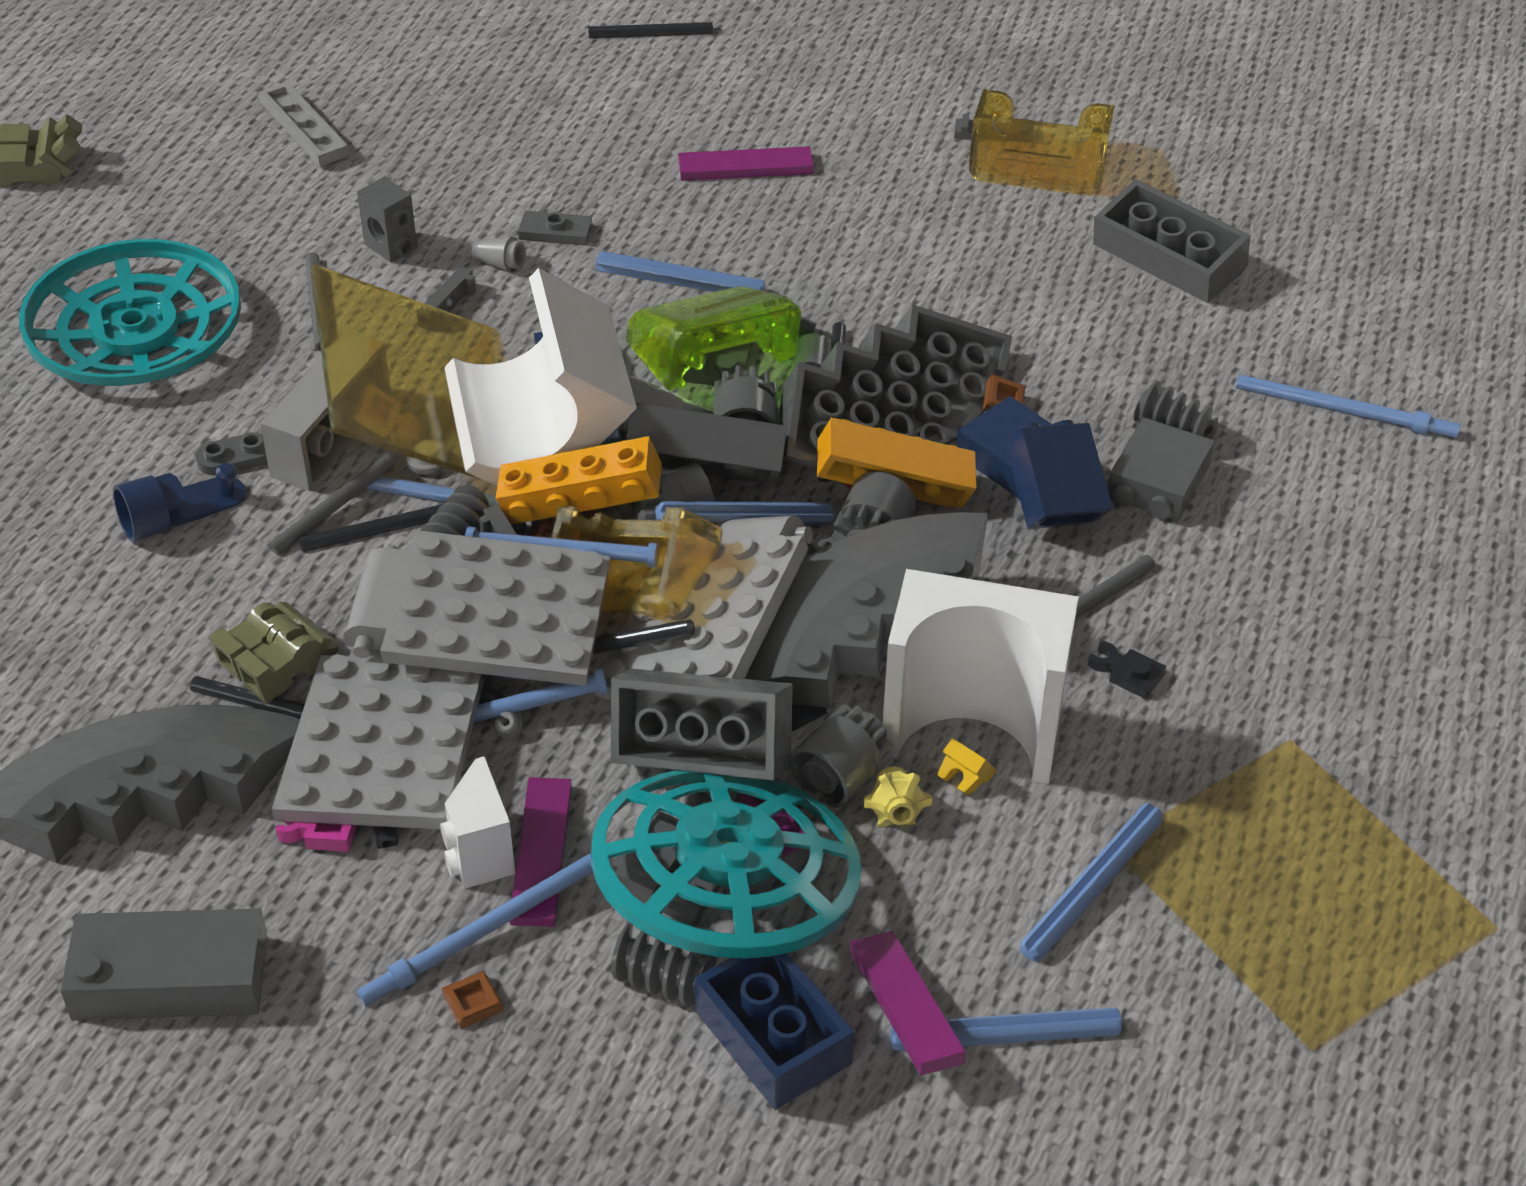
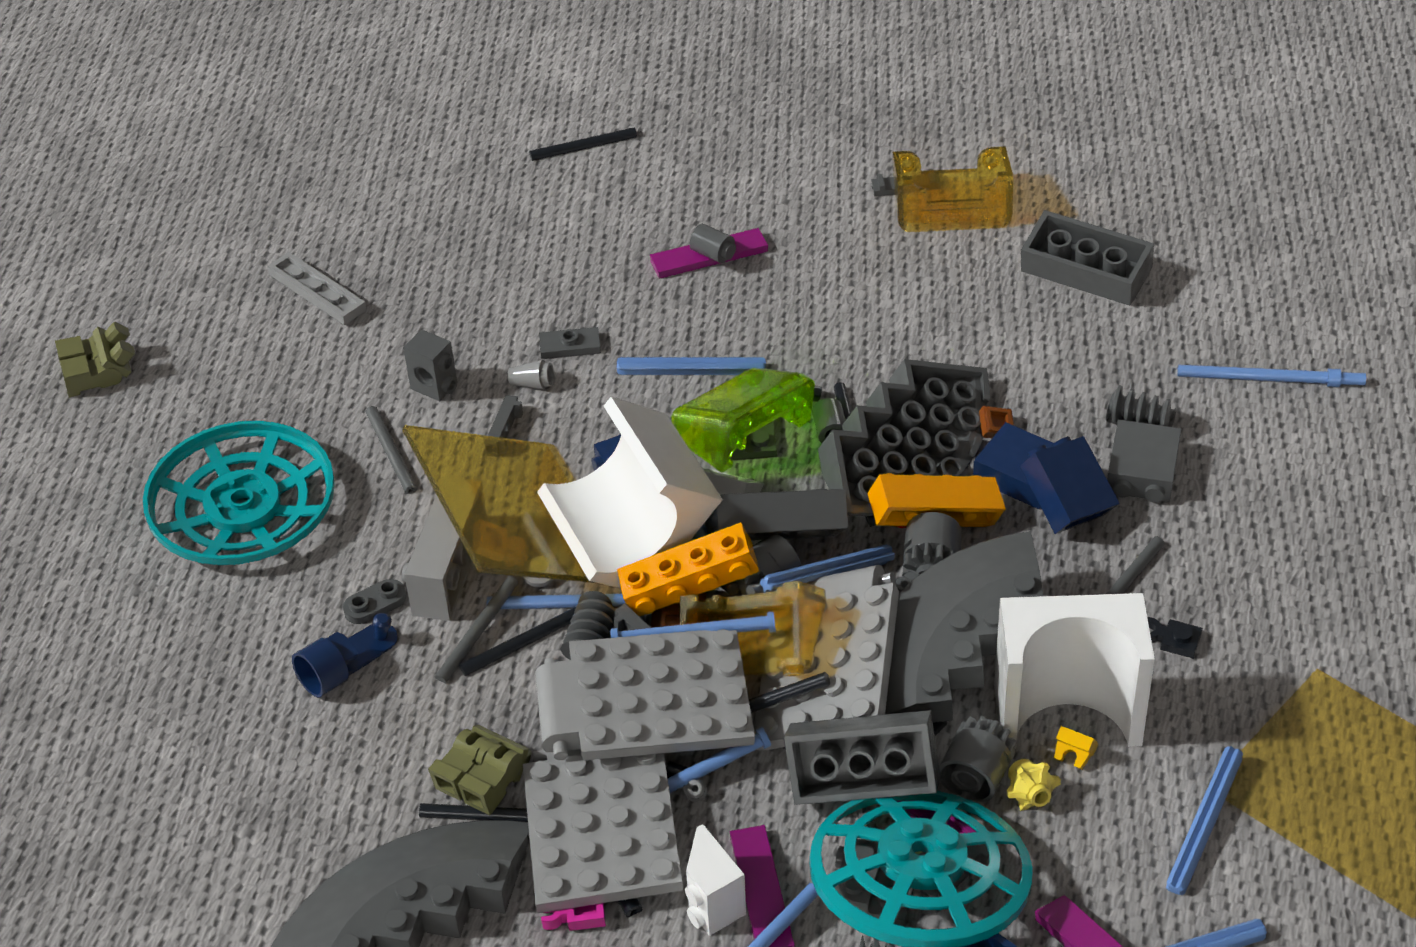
camera: 10 degrees left, 0 degrees up
(746, 396) = (792, 468): dark grey gear -> none
(748, 151) = (712, 243): none -> dark grey brick

